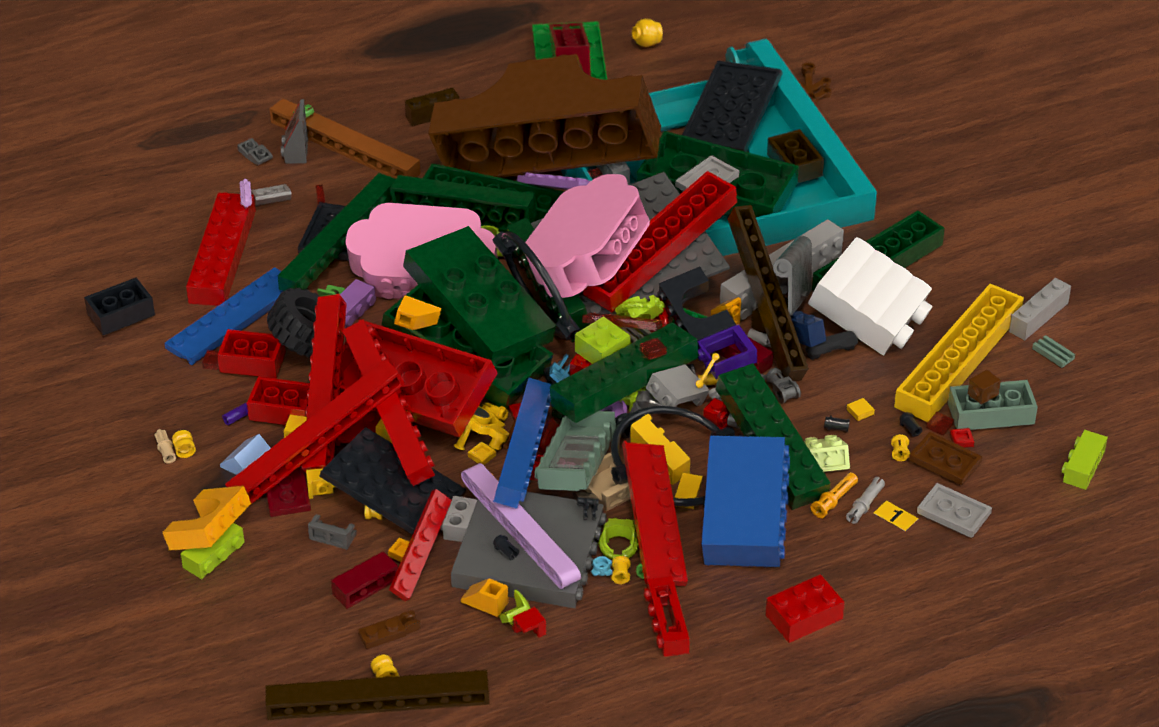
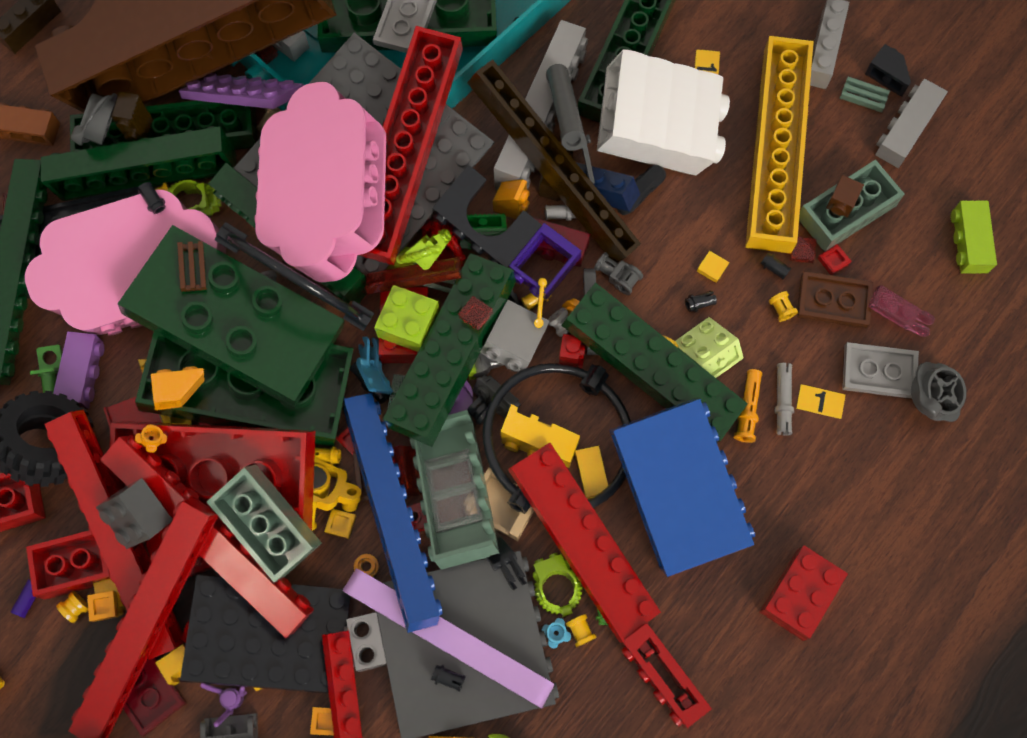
camera: 25 degrees left, 30 degrees up
(245, 454) = (74, 662): light blue slope -> none
(266, 427) = (72, 607): none -> yellow wheel
(289, 423) = (102, 606): none -> light orange plate
(343, 514) = (229, 698): none -> medium lavender plant
(346, 363) = (134, 514): none -> dark grey brick
(383, 330) = (154, 432): none -> light orange plate
(432, 400) = (264, 522): none -> sand green brick
(451, 162) = (95, 120): none -> dark grey piece
(463, 214) = (154, 202): none -> black pin
(472, 241) = (191, 247): none -> reddish brown tile
(476, 169) = (131, 116): none -> dark brown brick
(937, 296) = (707, 61): none -> yellow sticker
(987, 536) = (938, 391): none -> dark grey piece
(993, 481) = (901, 311): none -> clear pink hinge
(1078, 377) = (911, 122): none -> light grey brick
(1080, 340) = (890, 70): none -> black slope

